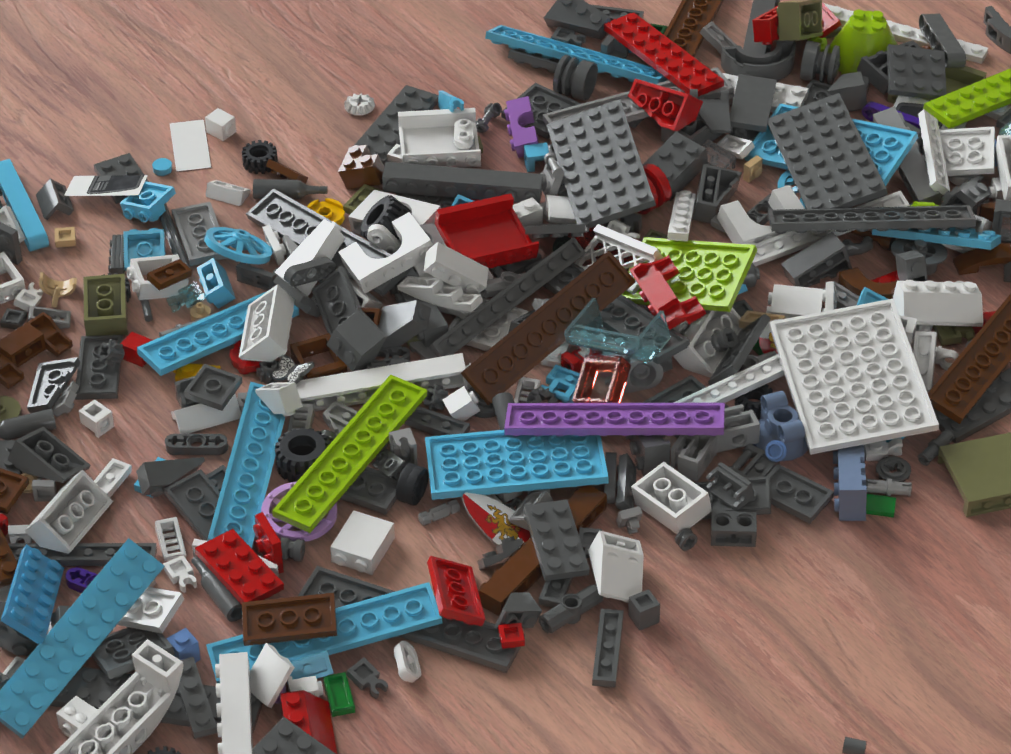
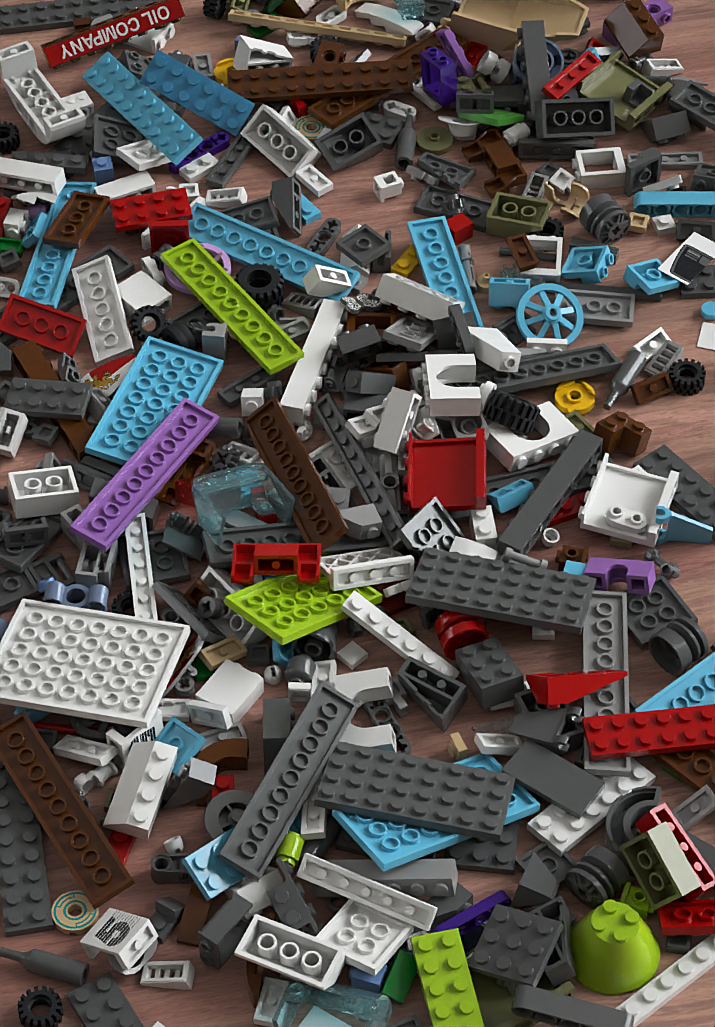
camera: 115 degrees right, 5 degrees up
(25, 503) = (308, 122): none -> tan tile
(55, 221) = (664, 224): none -> white plate
(82, 246) = (604, 219): none -> dark grey wheel
(206, 618) = (129, 186): none -> white brick
(238, 175) = (669, 350): none -> light grey slope
(318, 550) = (150, 268): none -> white plate
(321, 315) = (411, 333): none -> light grey plate
(402, 514) = (136, 322): none -> black tyre
(404, 554) = (102, 310): none -> white plate
(516, 160) = (572, 554): none -> reddish brown brick
(567, 270) = (362, 521): none -> light grey slope
(649, 391) = (182, 535): none -> dark grey hinge
(710, 359) = (197, 592): none -> reddish brown slope
(754, 296) = (268, 675): none -> white hinge
(765, 268) = (299, 692): none -> white tile
(984, 278) = (173, 869): none -> dark grey piece

